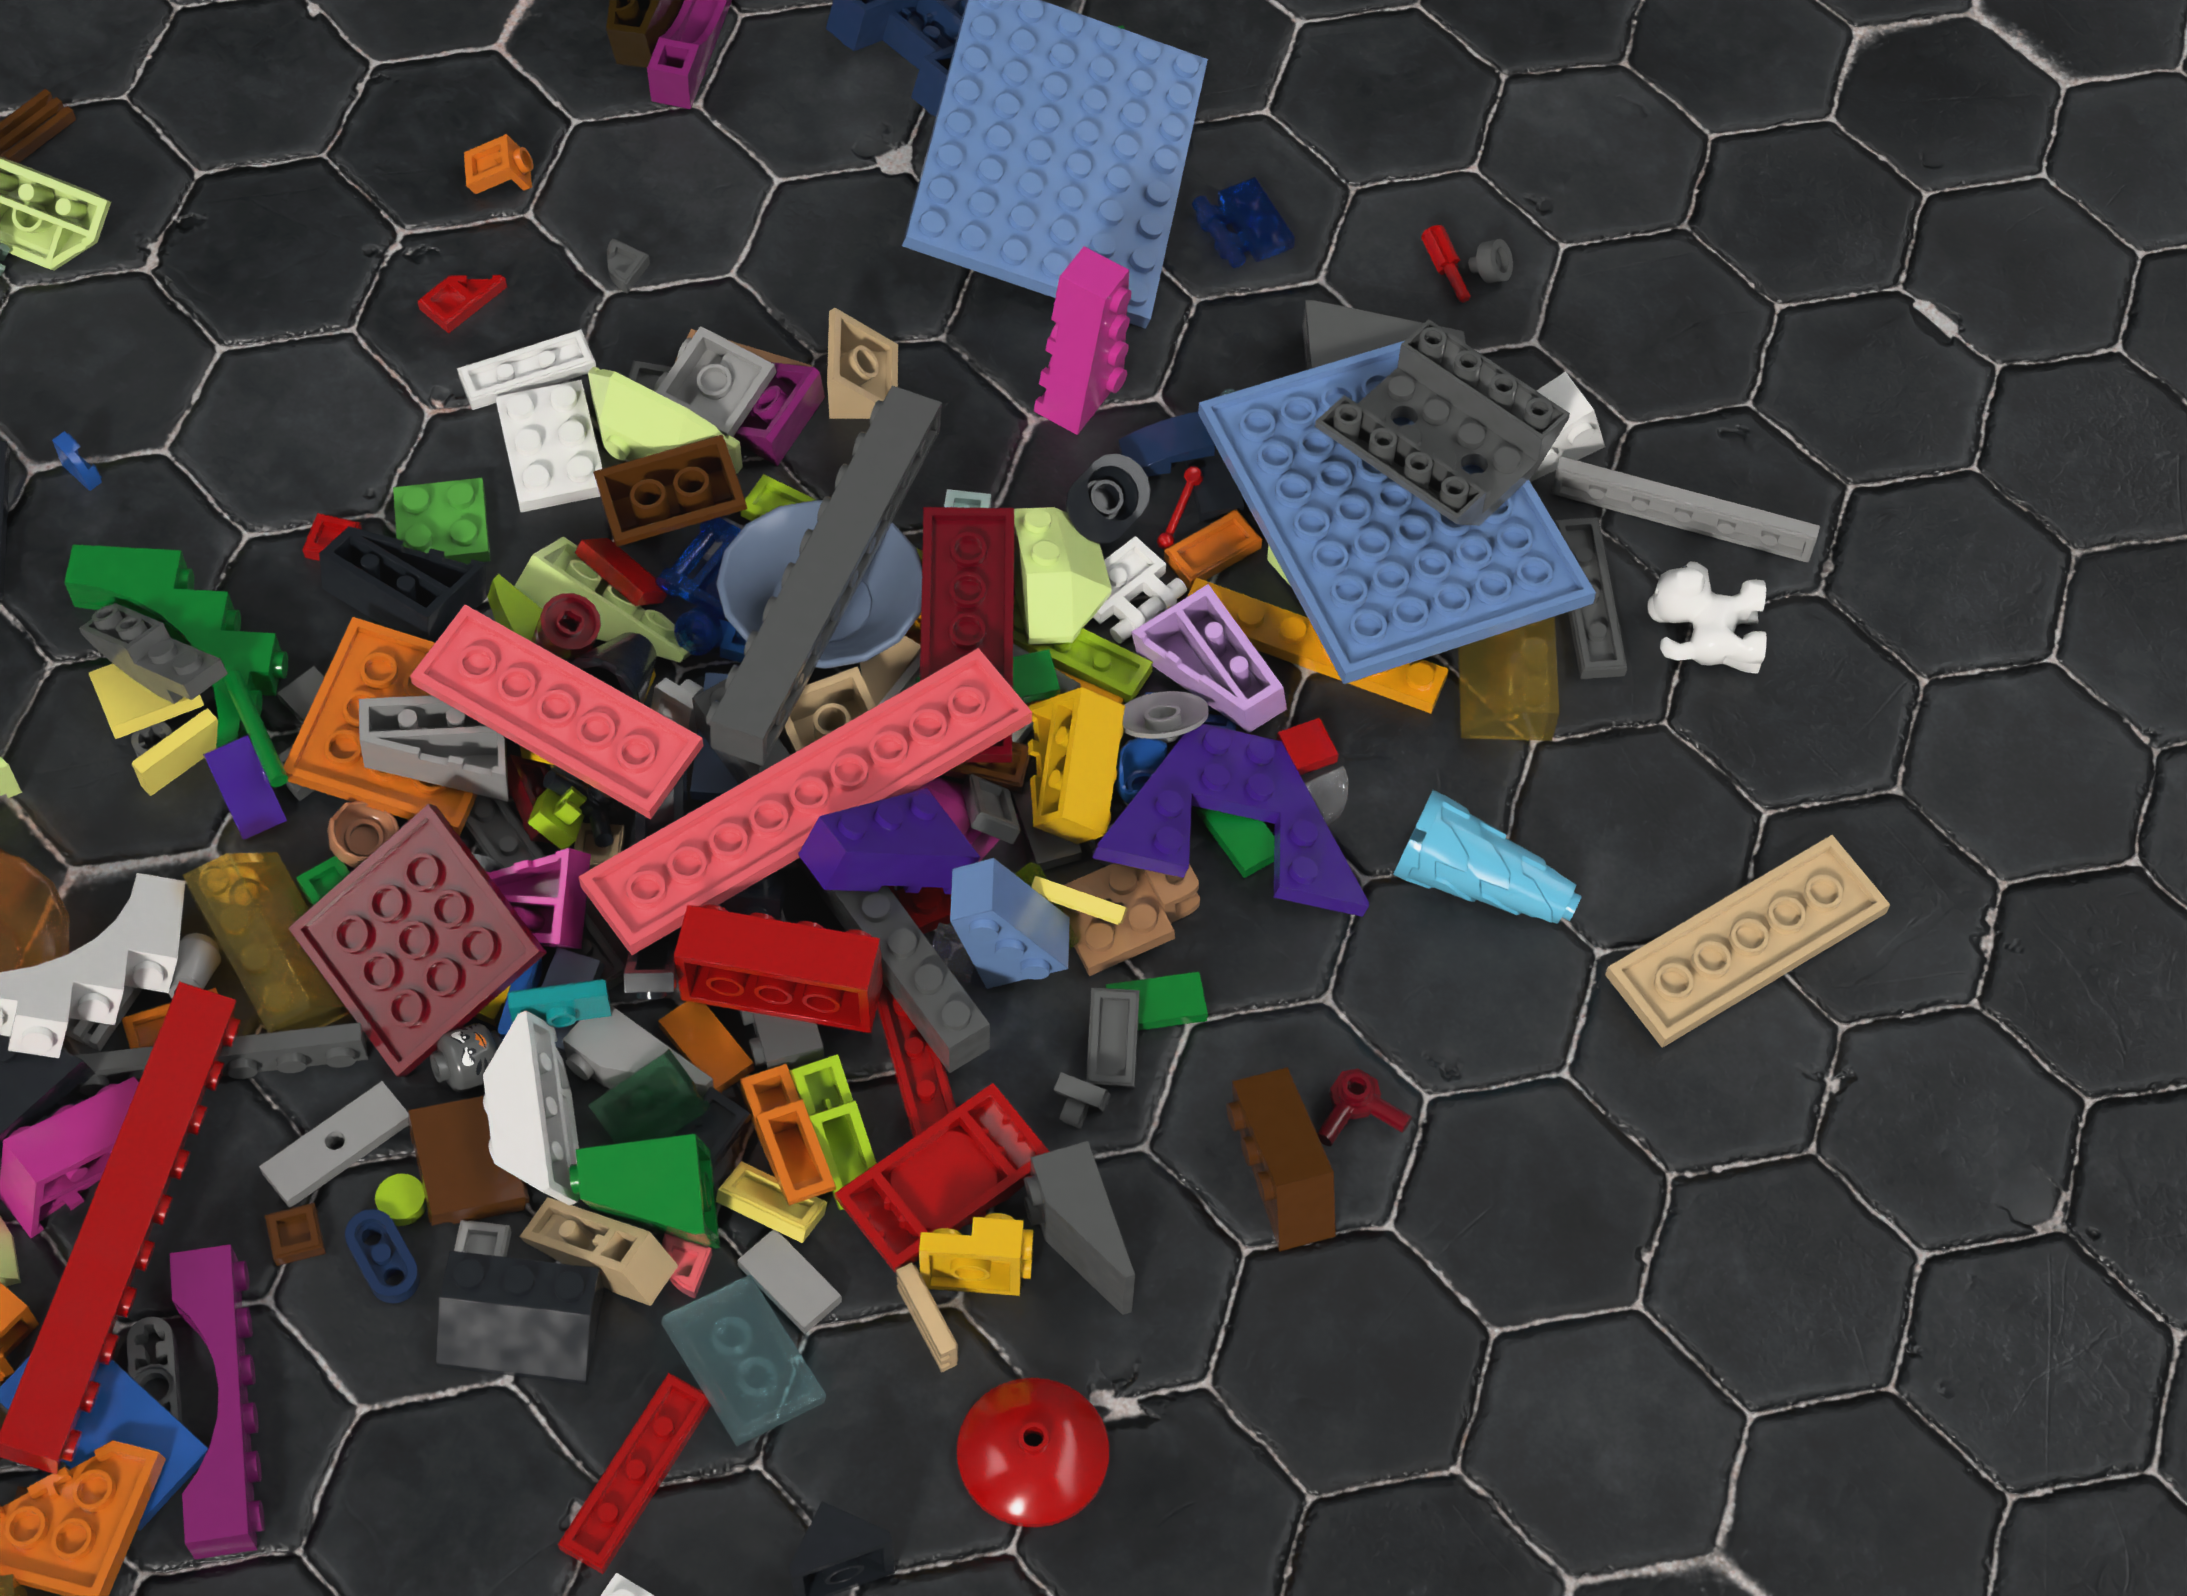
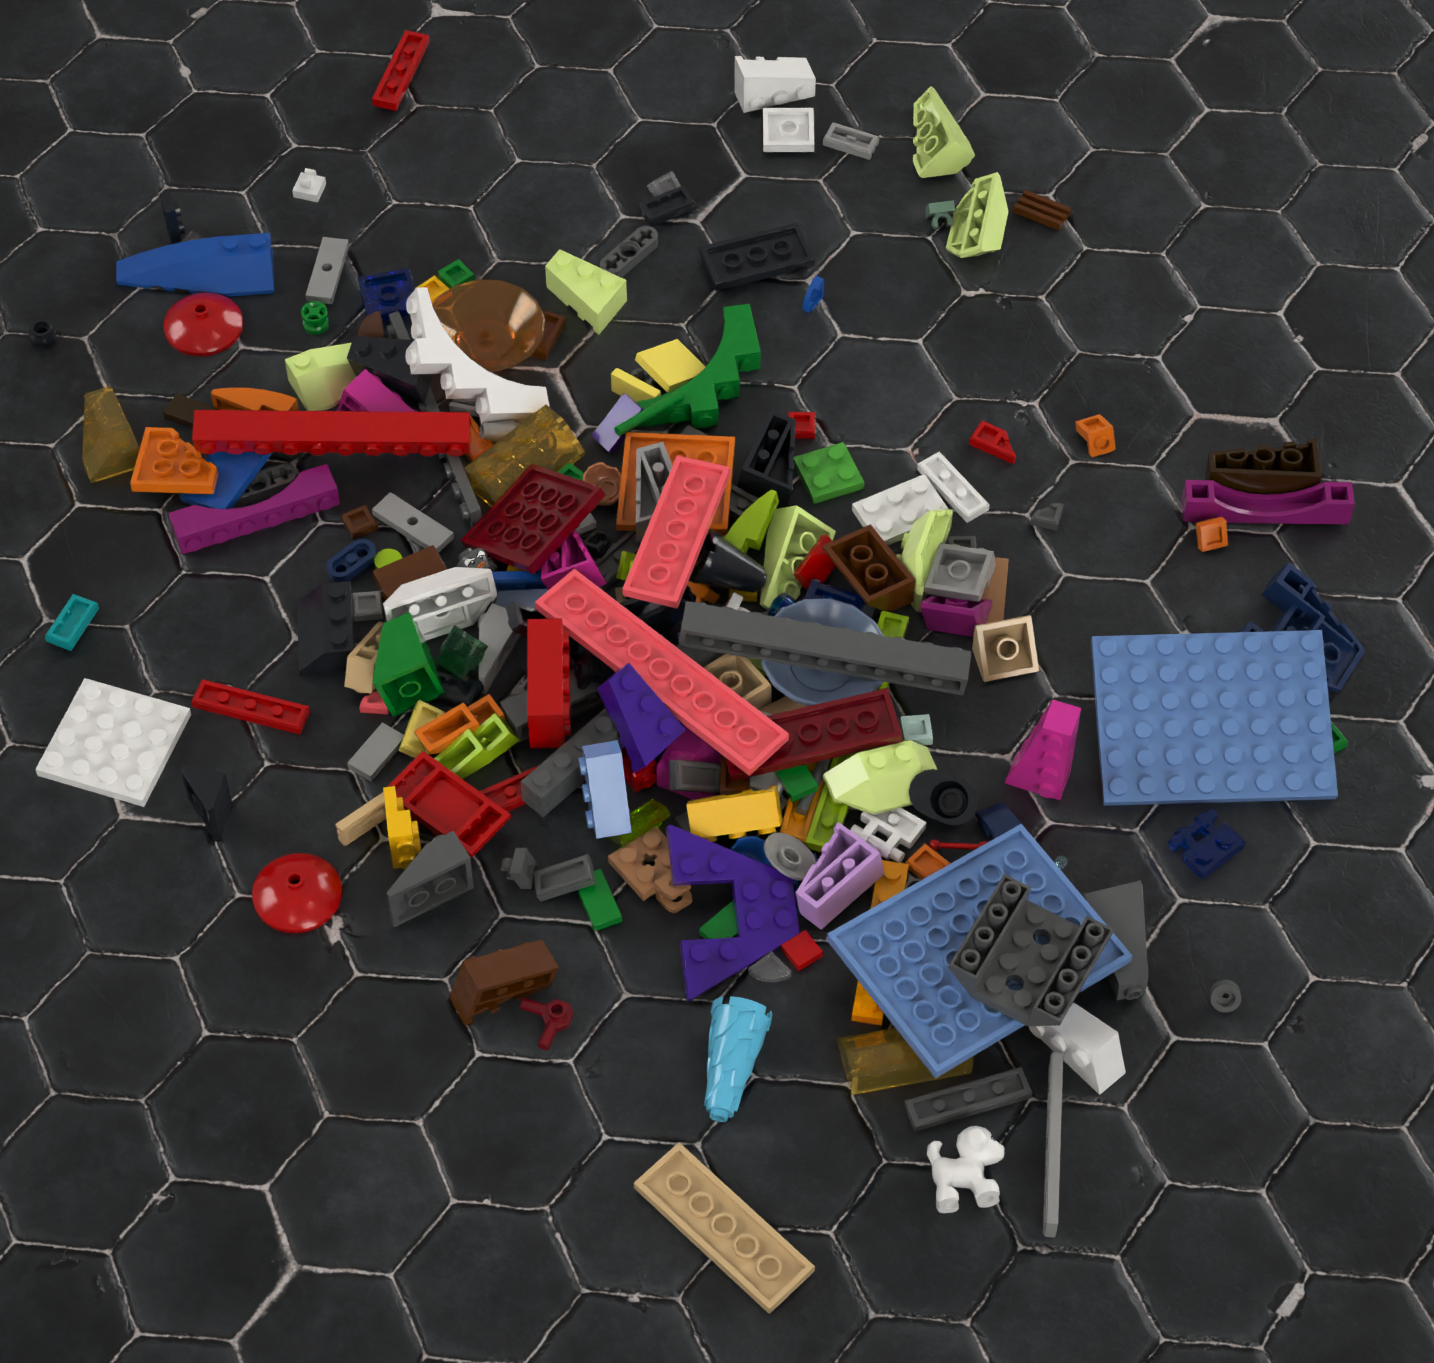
camera: 80 degrees right, 5 degrees down
(149, 655) = (688, 356): dark grey slope -> none
(563, 1003) = (504, 588): teal plate -> none
(567, 626) = (745, 530): dark red wheel -> none
(706, 1044) = (510, 681): orange tile -> none
(729, 79) = (1212, 534): none -> orange tile
(743, 1360) = (322, 738): clear light blue tile -> none
(1079, 901) = (639, 830): light yellow tile -> none
(1445, 259) = (1220, 969): red axle -> none

